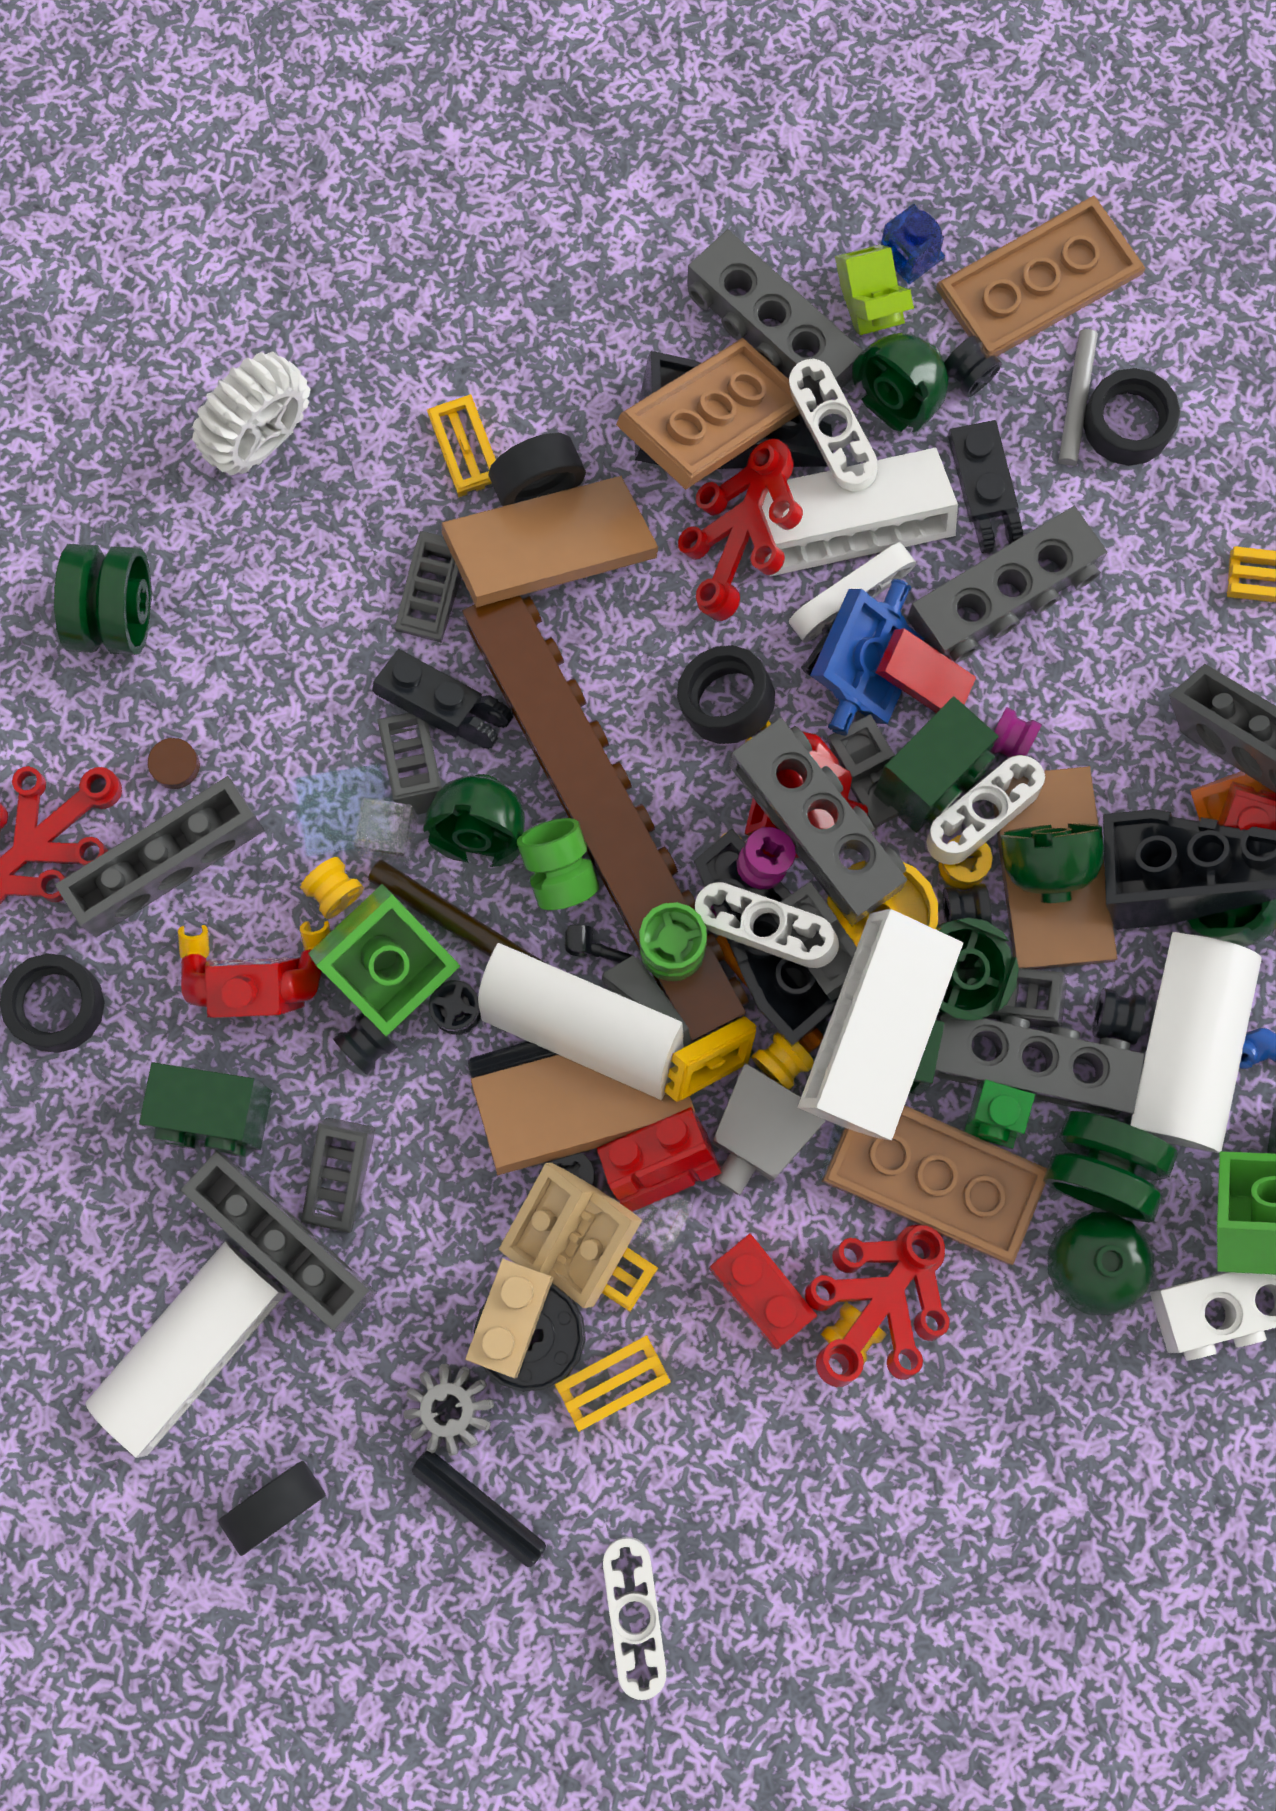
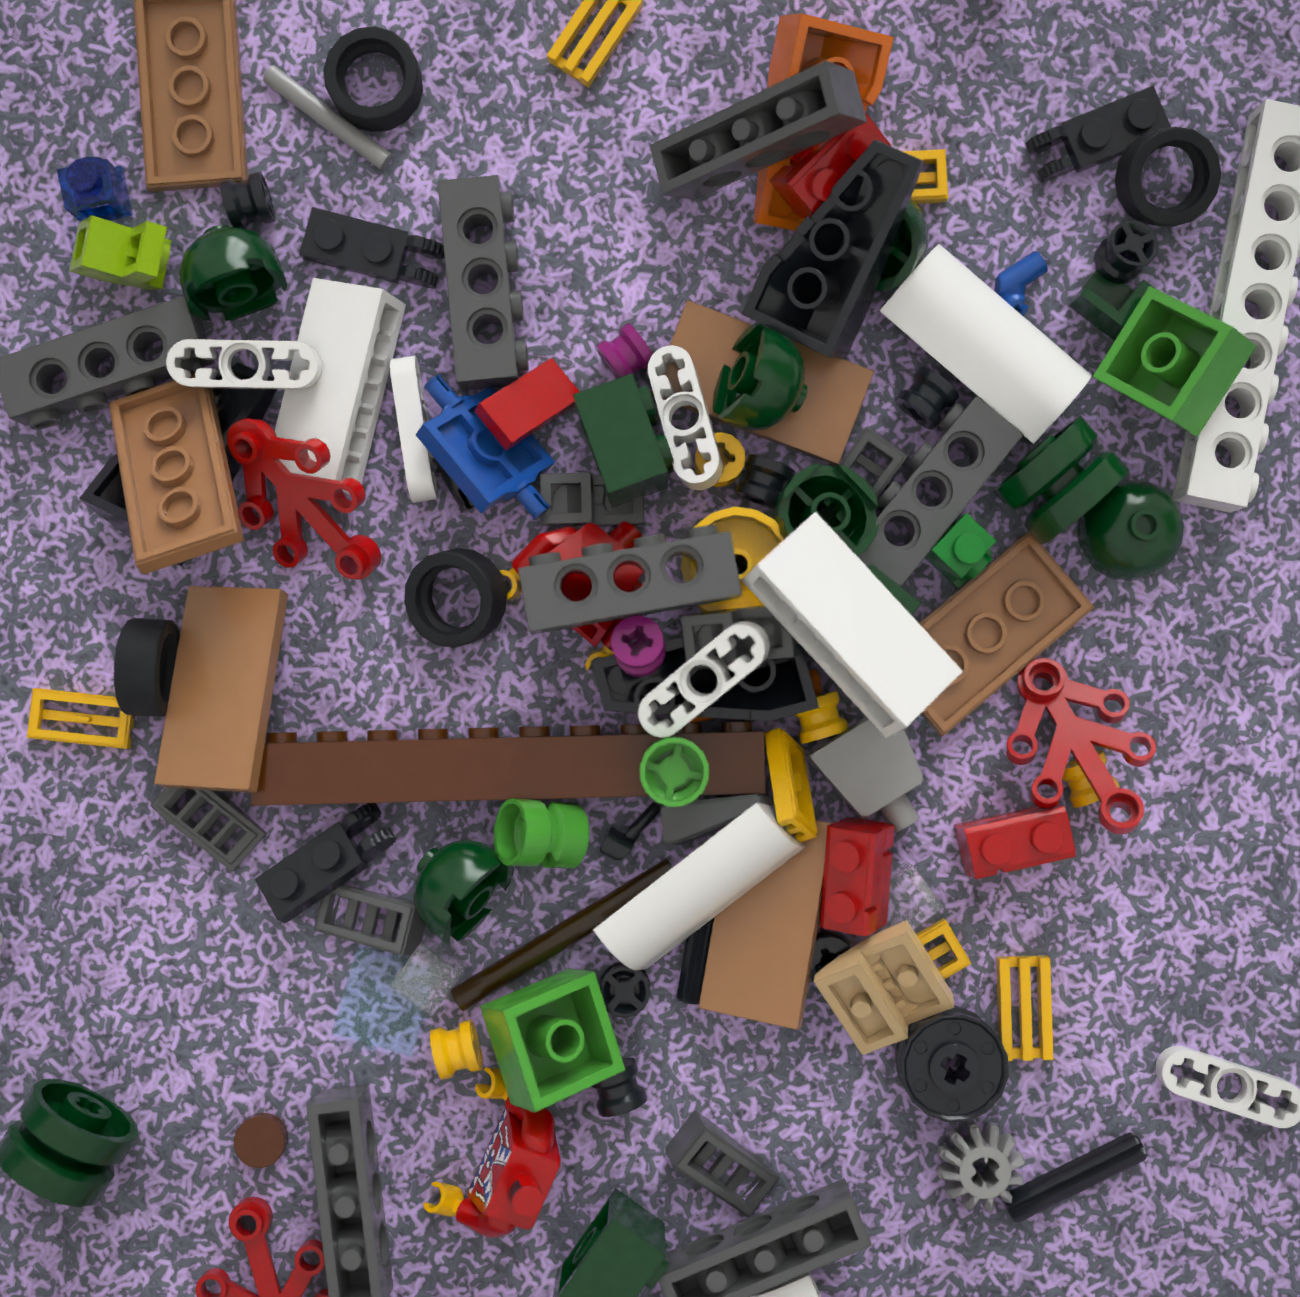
camera: 65 degrees left, 10 degrees up
(509, 1318) = (934, 1080): tan plate -> none

